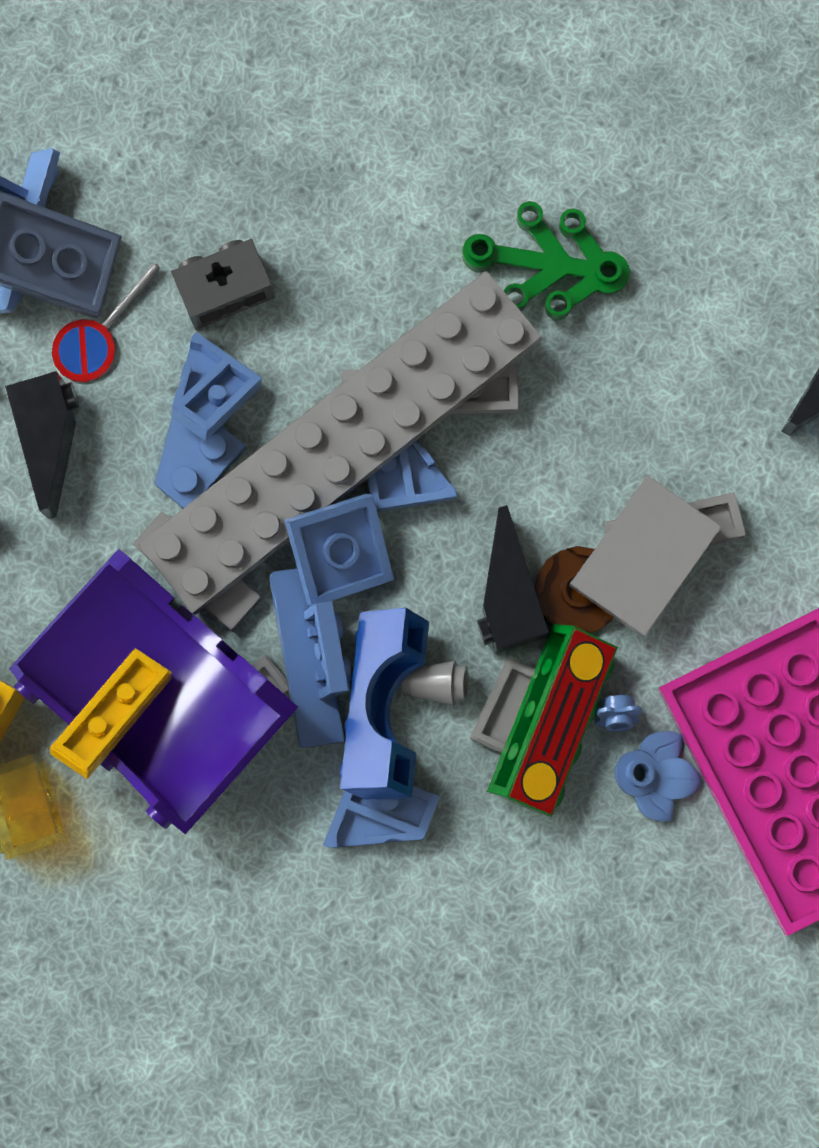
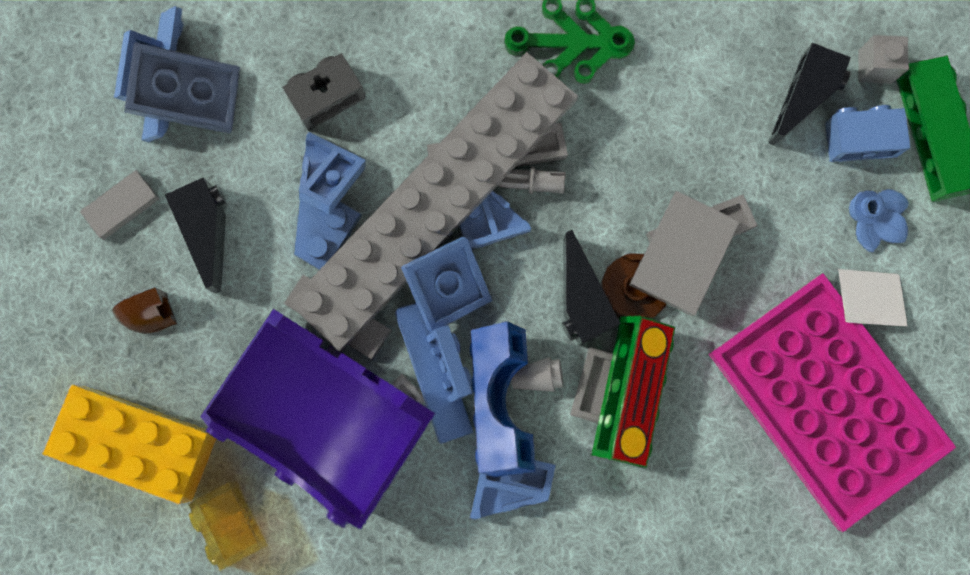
camera: 15 degrees left, 0 degrees up
(85, 347) = (226, 157): piece -> none
(110, 713) = (286, 441): yellow tile -> none
(472, 436) = (535, 181): none -> light grey axle
(617, 713) = (682, 378): medium blue plate -> none
(664, 775) = (724, 419): medium blue plate -> none

